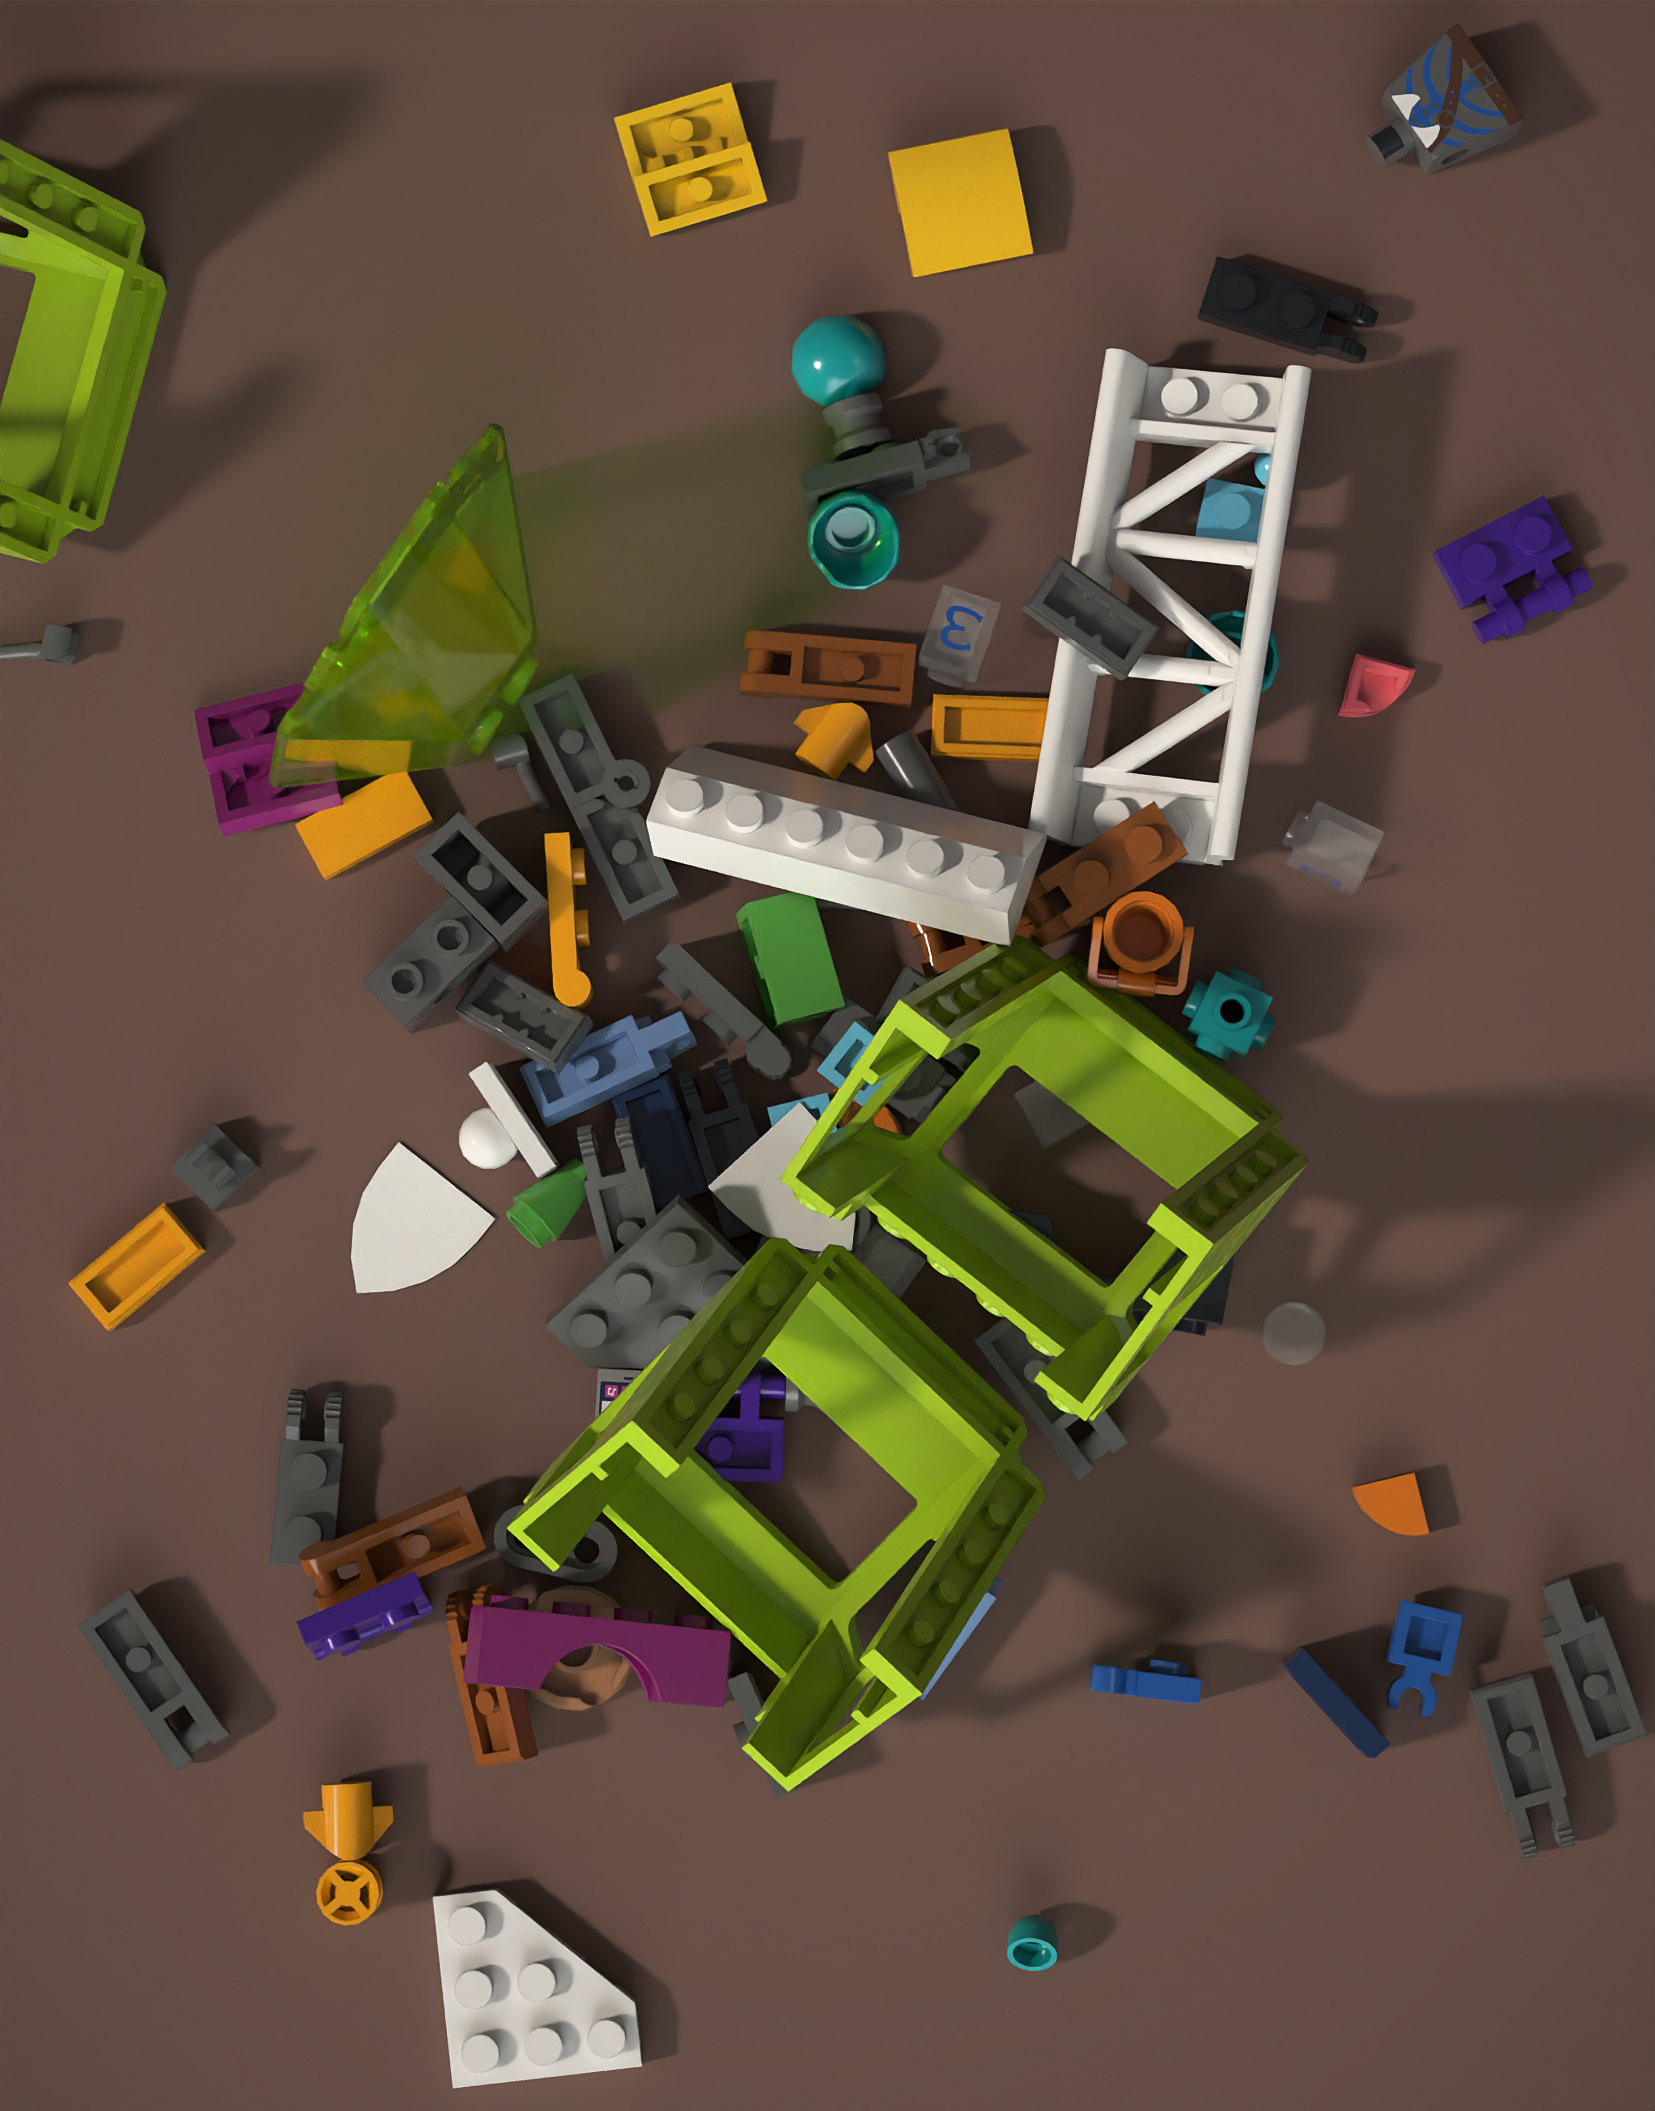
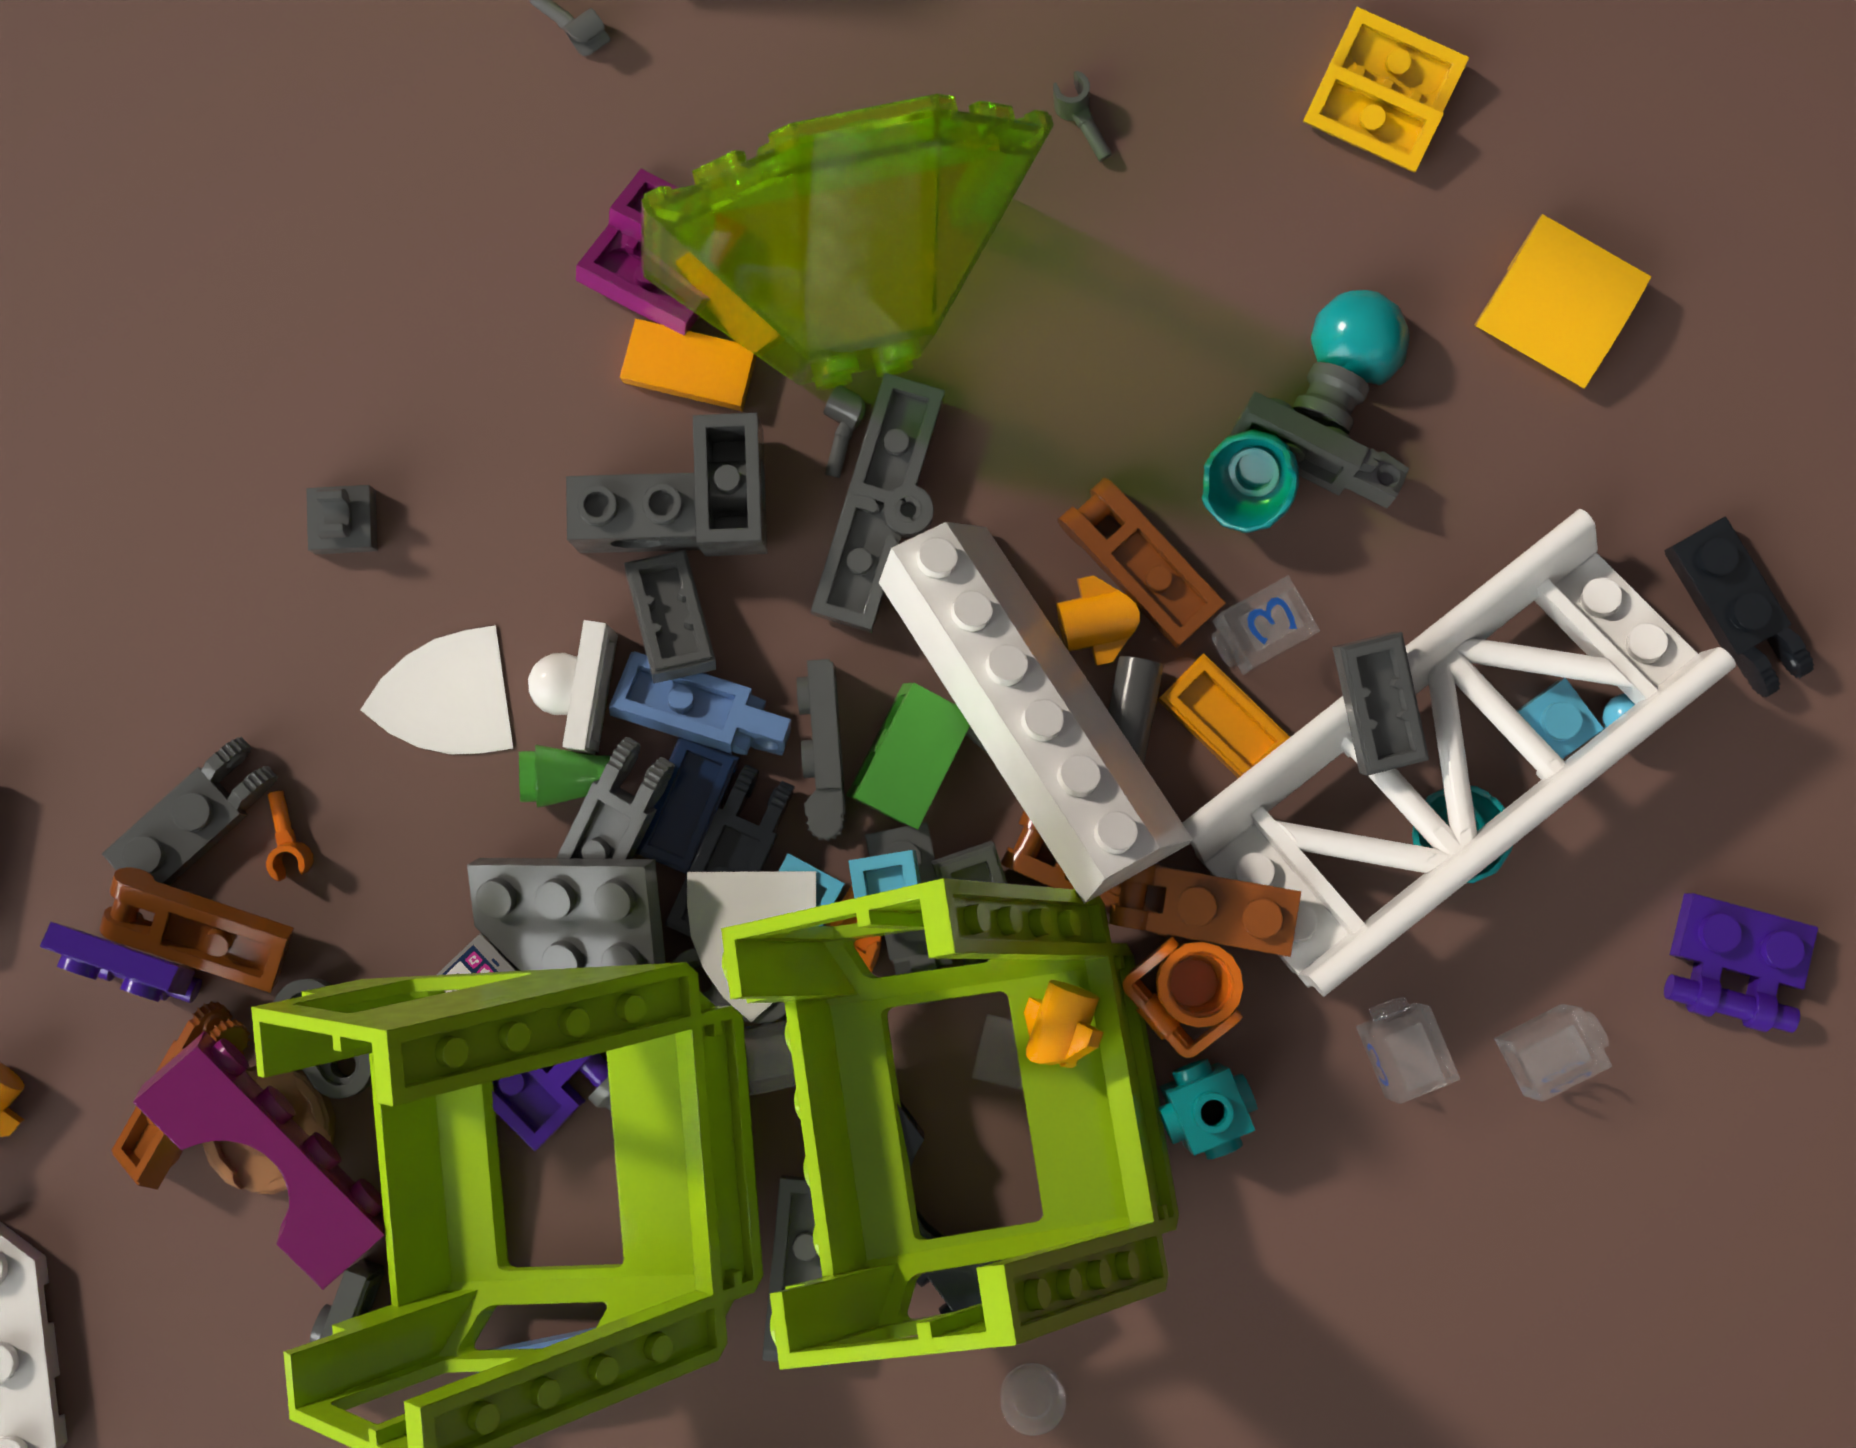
camera: 40 degrees right, 0 degrees up
(137, 1267) = (216, 541): light orange tile -> none
(387, 1430) = (285, 840): none -> orange hand
(484, 377) = (1078, 110): none -> dark grey hand
(567, 925) = (766, 575): light orange plate -> none
(1072, 1047) = (1061, 1025): none -> light orange piece
(1373, 686) = (1548, 952): coral tile -> none
(1436, 752) = (1555, 1051): none -> clear brick

